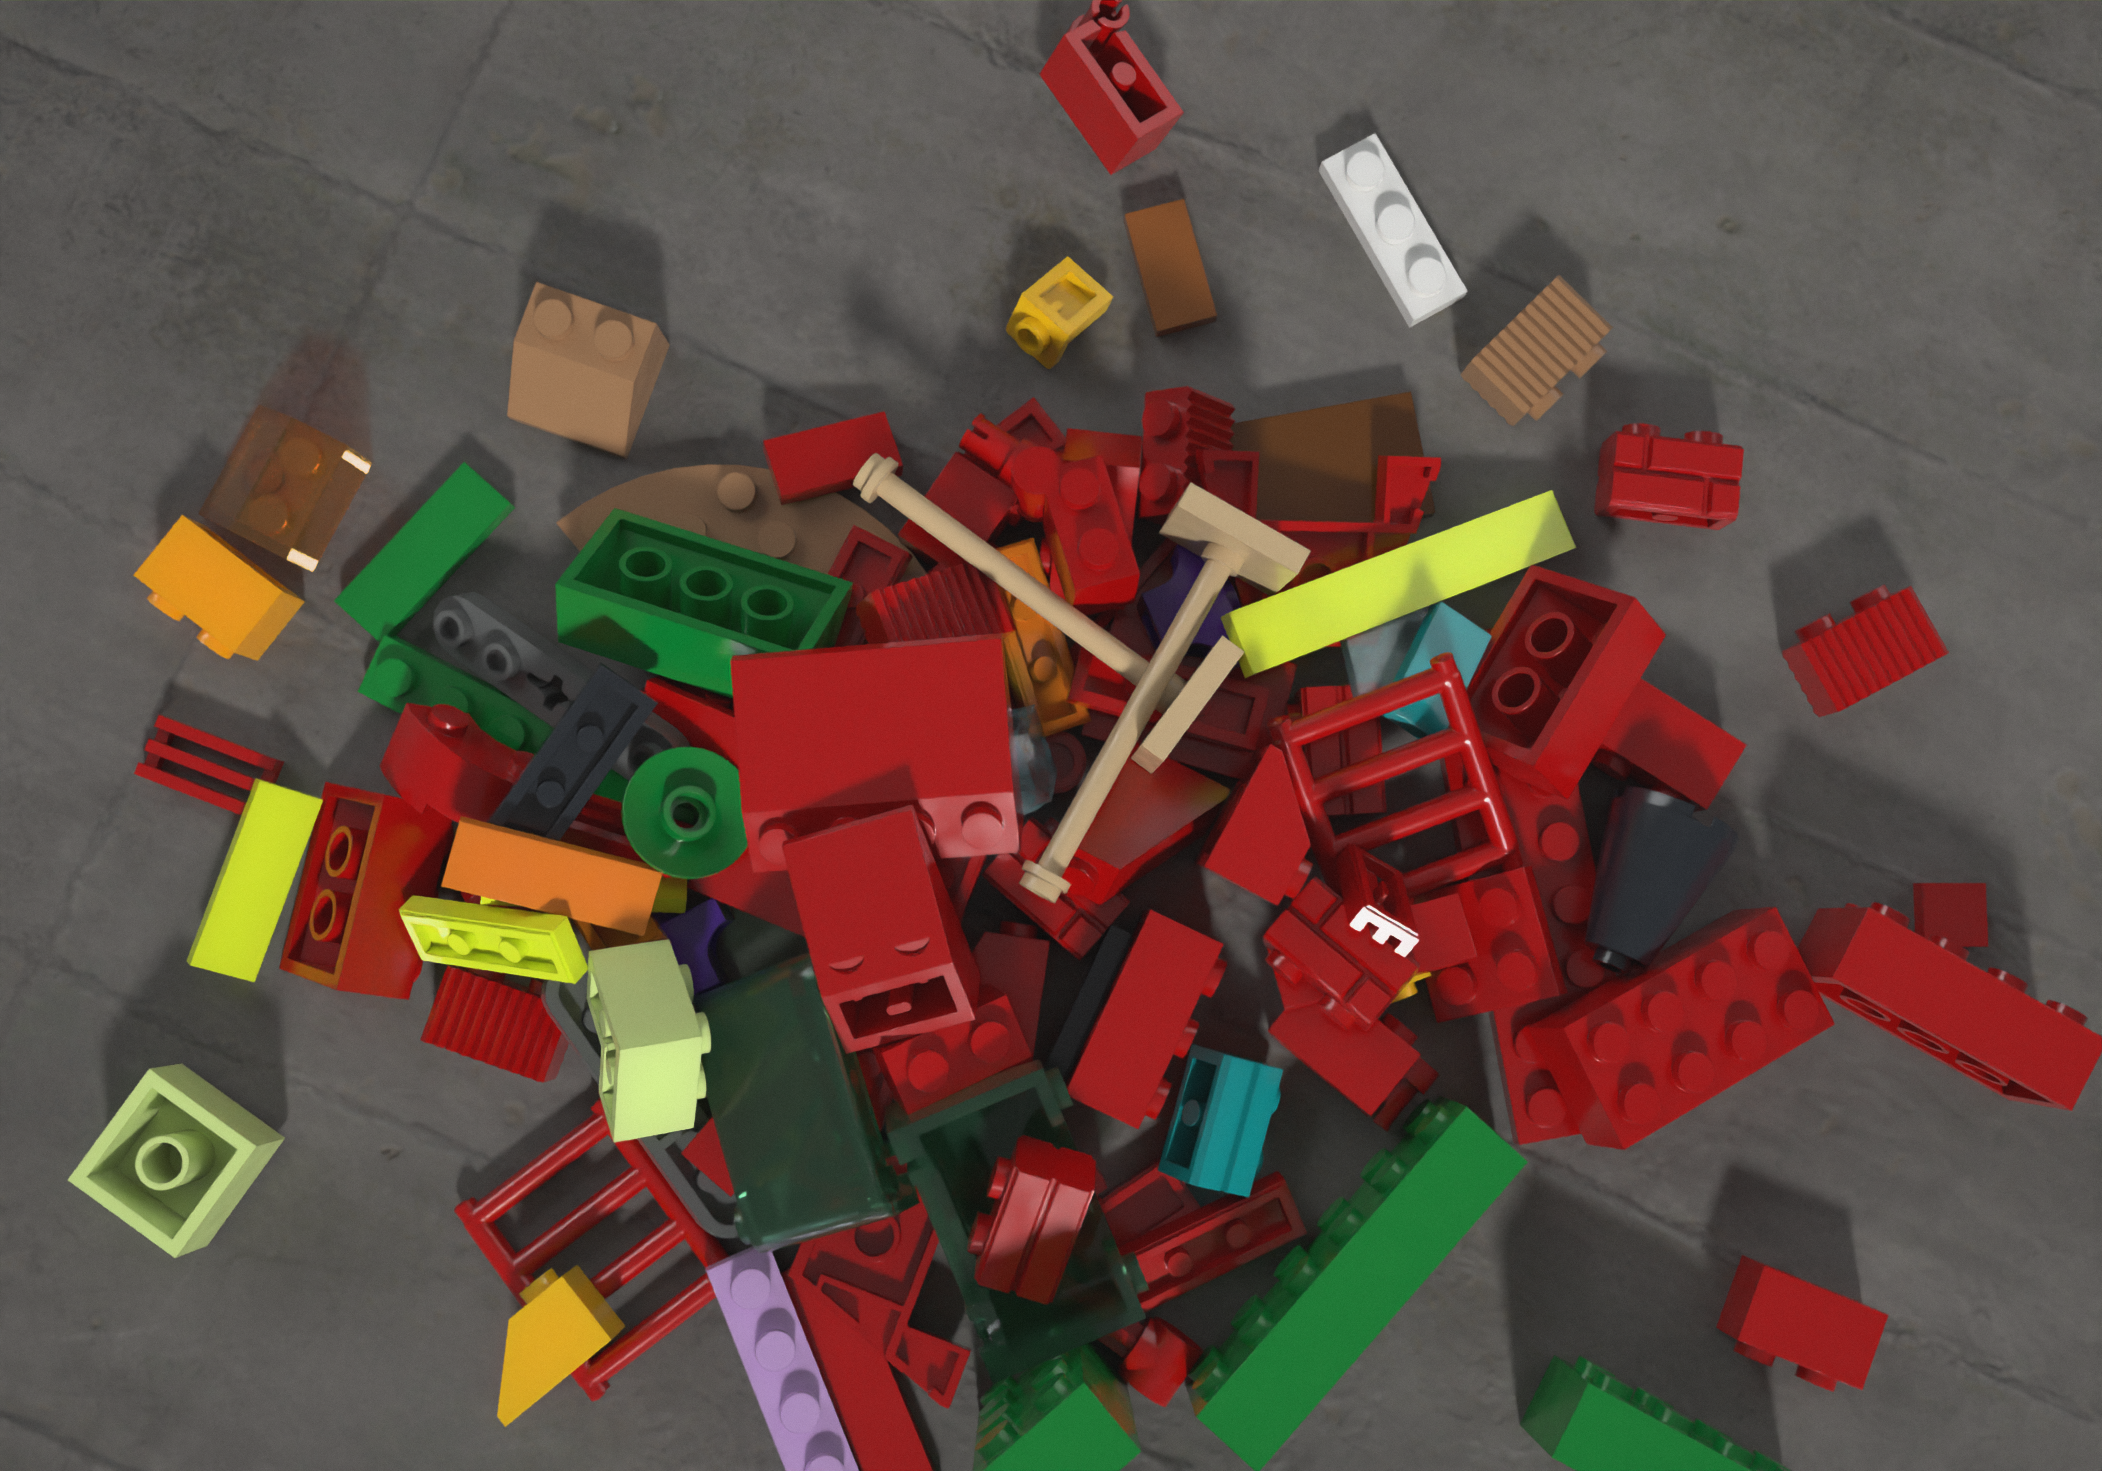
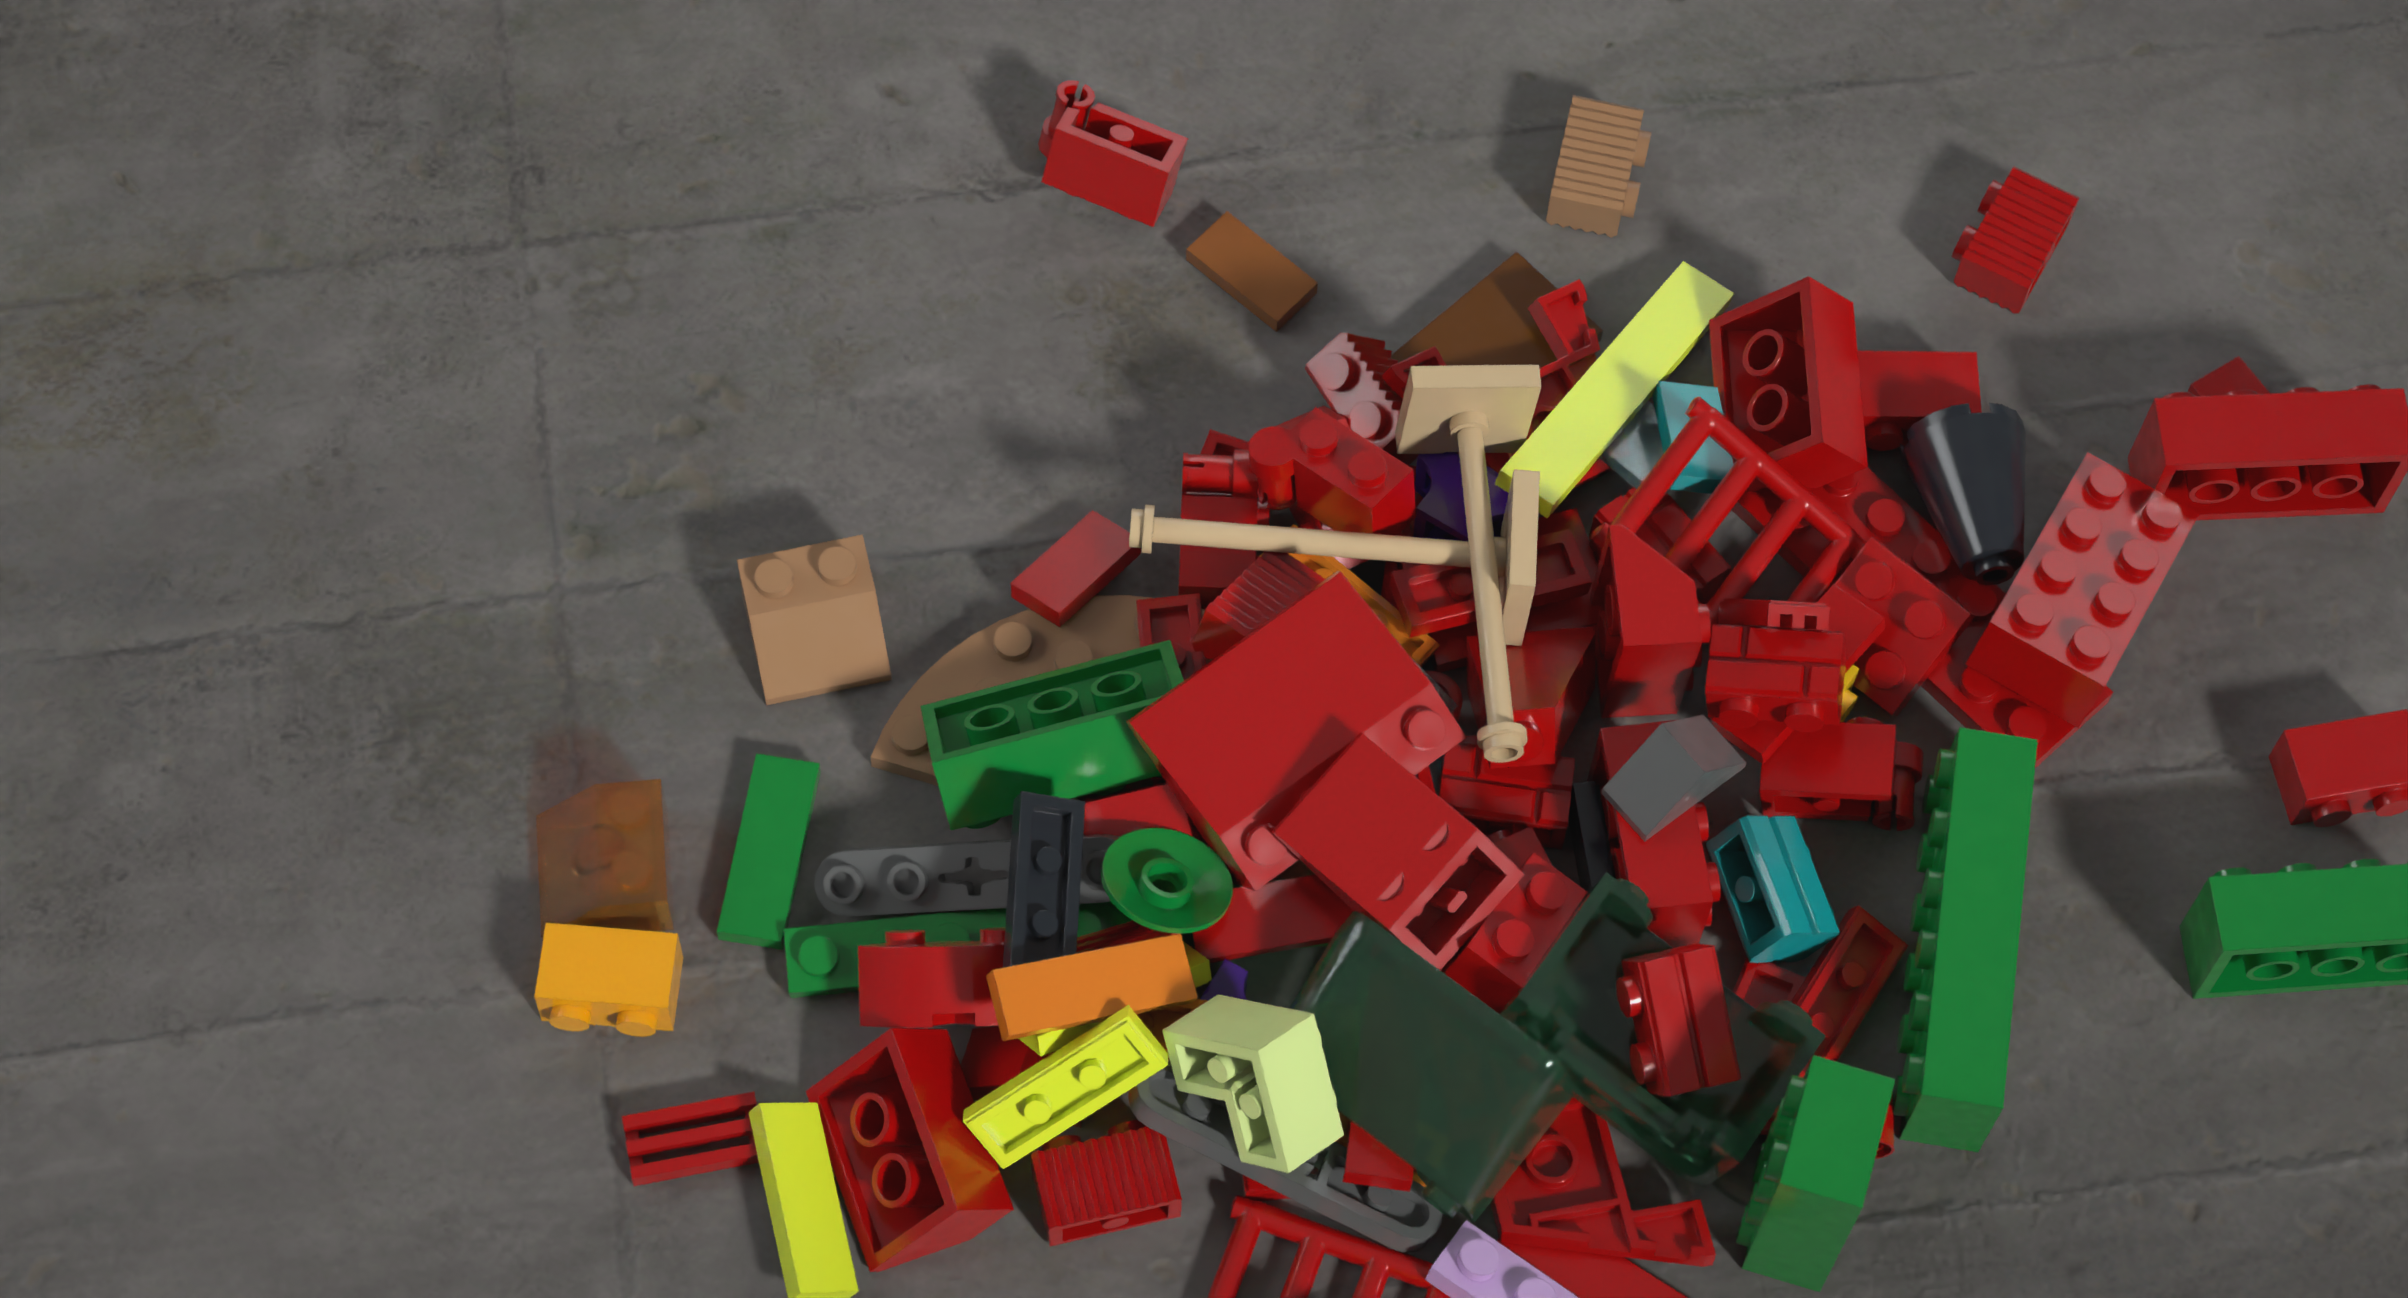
camera: 30 degrees left, 20 degrees down
(1056, 311) = (1183, 355): yellow bracket -> none
(1181, 998) = (1671, 774): none -> dark grey slope
(1392, 230) = (1412, 144): white plate -> none
(1669, 477) = (1769, 200): red brick -> none

